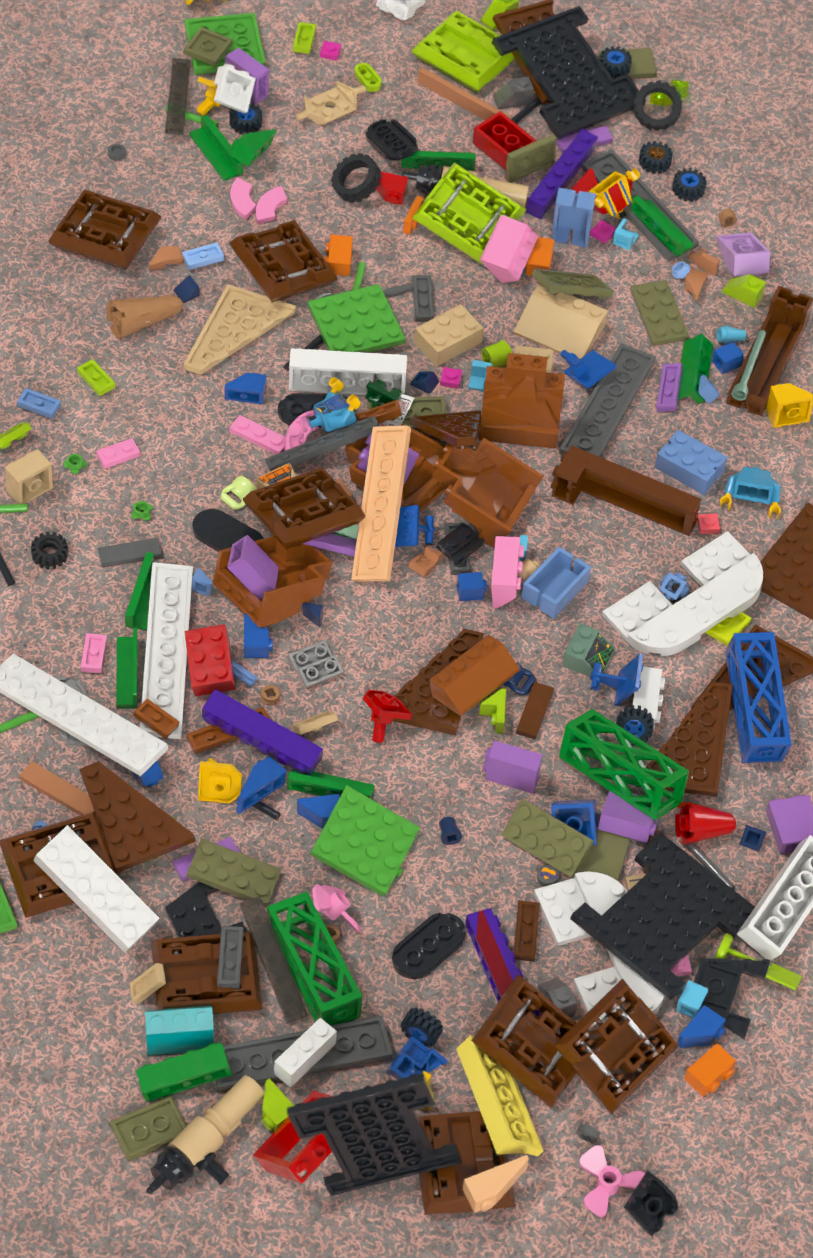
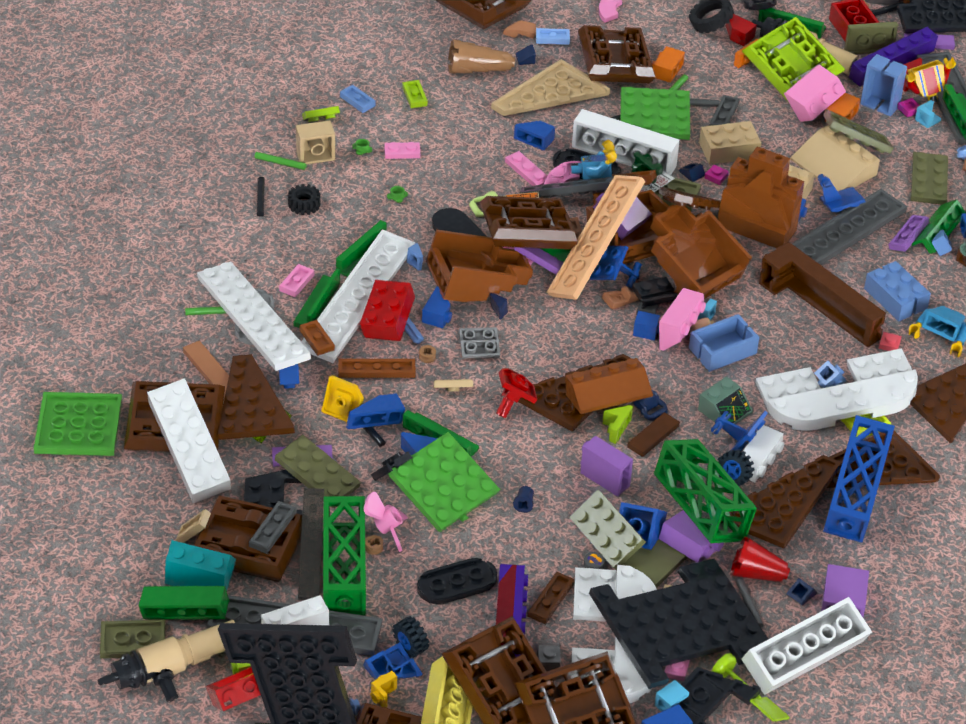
camera: 25 degrees right, 10 degrees down
(128, 552) = (368, 219): dark grey tile -> none
(253, 567) = (459, 248): medium lavender brick -> none
(262, 733) = (400, 375): dark purple brick -> none
(269, 204) = (630, 16): bright pink tile -> none
(305, 841) = (394, 461): none -> black plate

